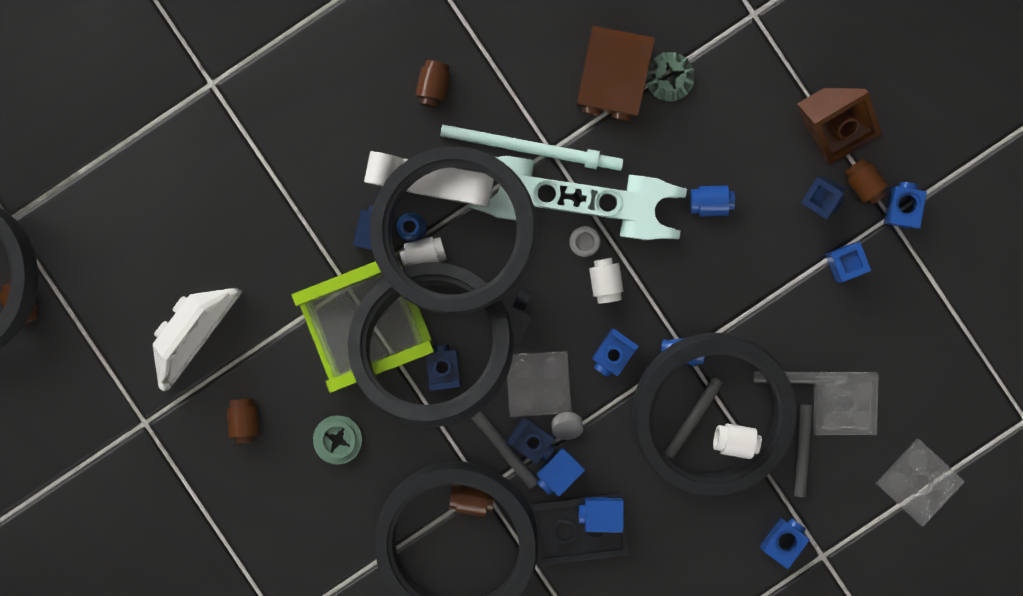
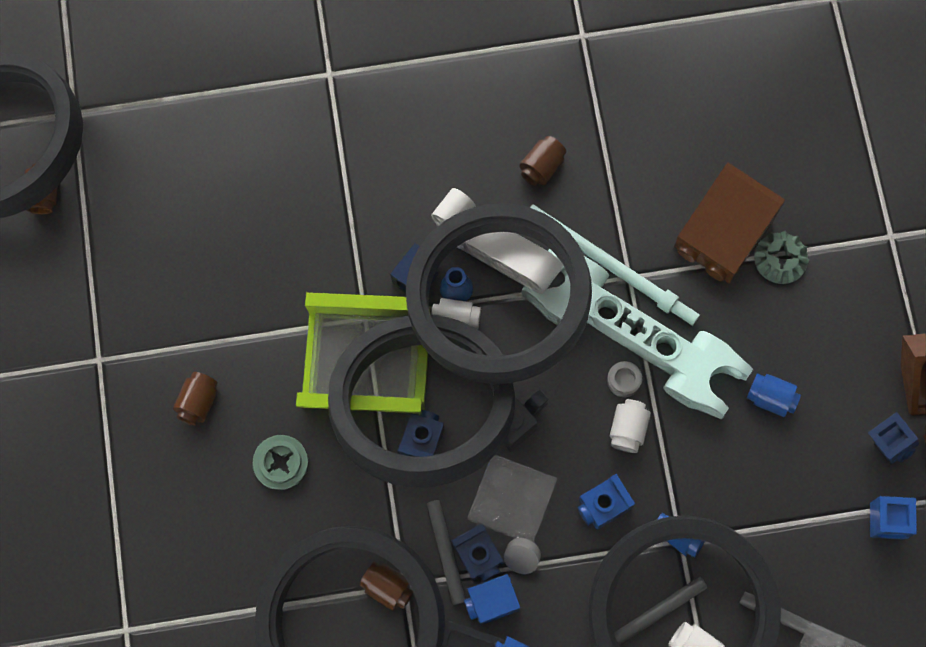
camera: 25 degrees right, 15 degrees down
(188, 331) = (188, 287): white wedge -> none

